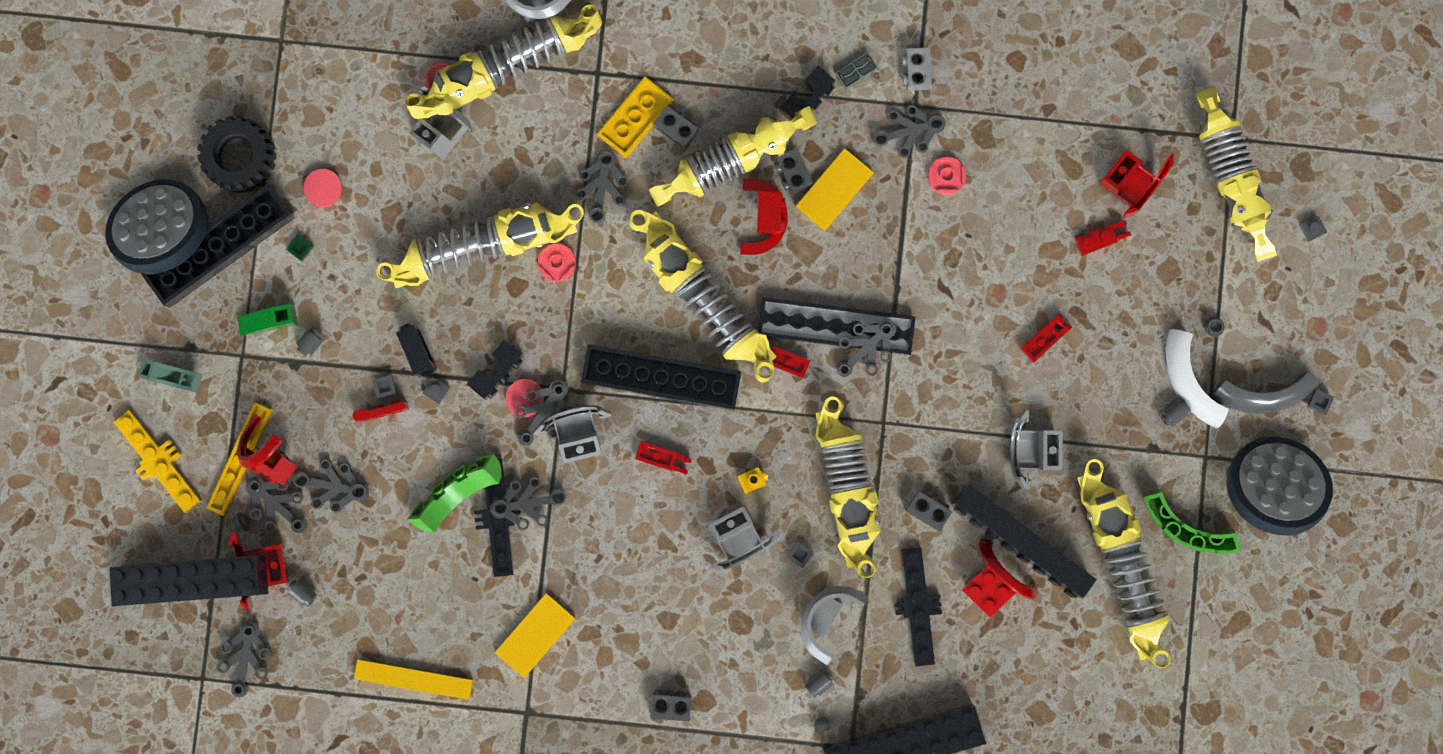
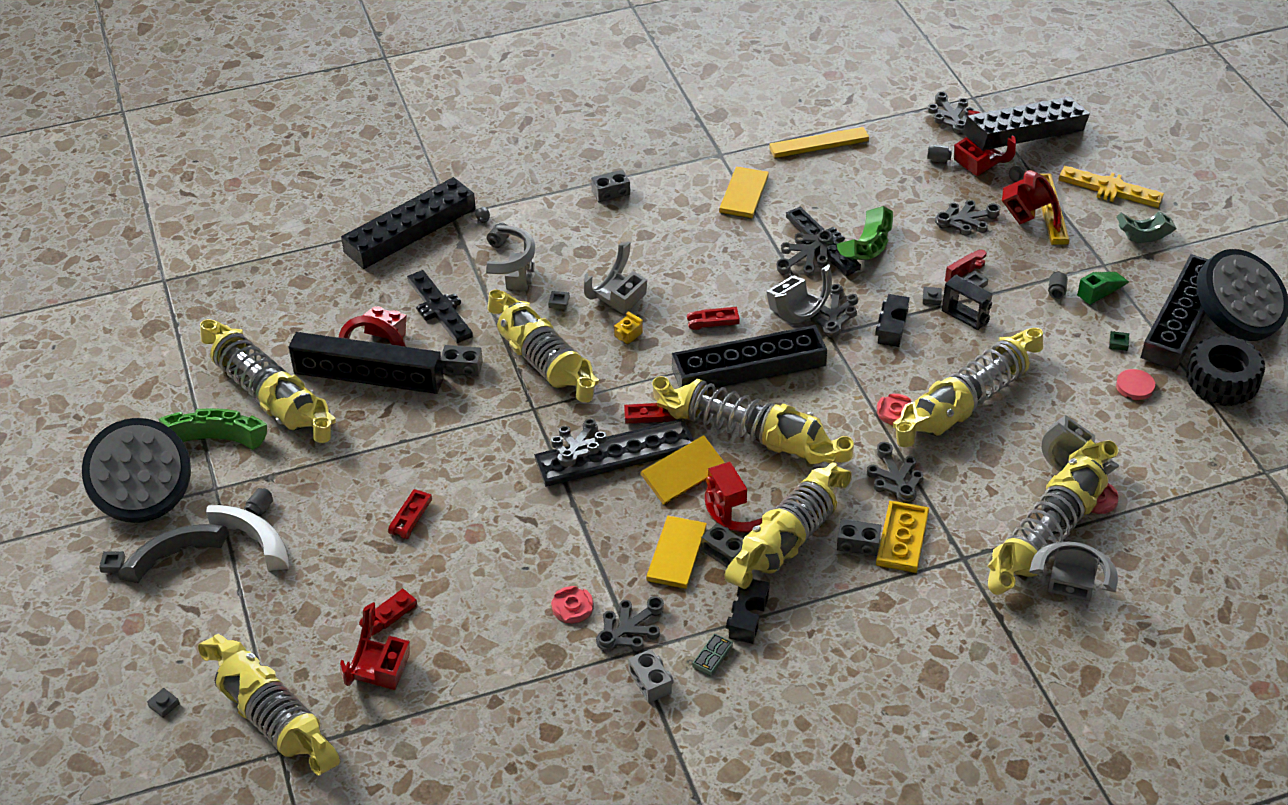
camera: 155 degrees right, 40 degrees down
(273, 503) = (974, 189): dark grey plant -> none
(516, 396) = (863, 320): coral tile -> none
(786, 274) = (681, 469): none -> yellow tile
(1033, 449) = (384, 429): light grey piece -> none
(1214, 326) = (242, 582): dark grey plate -> none

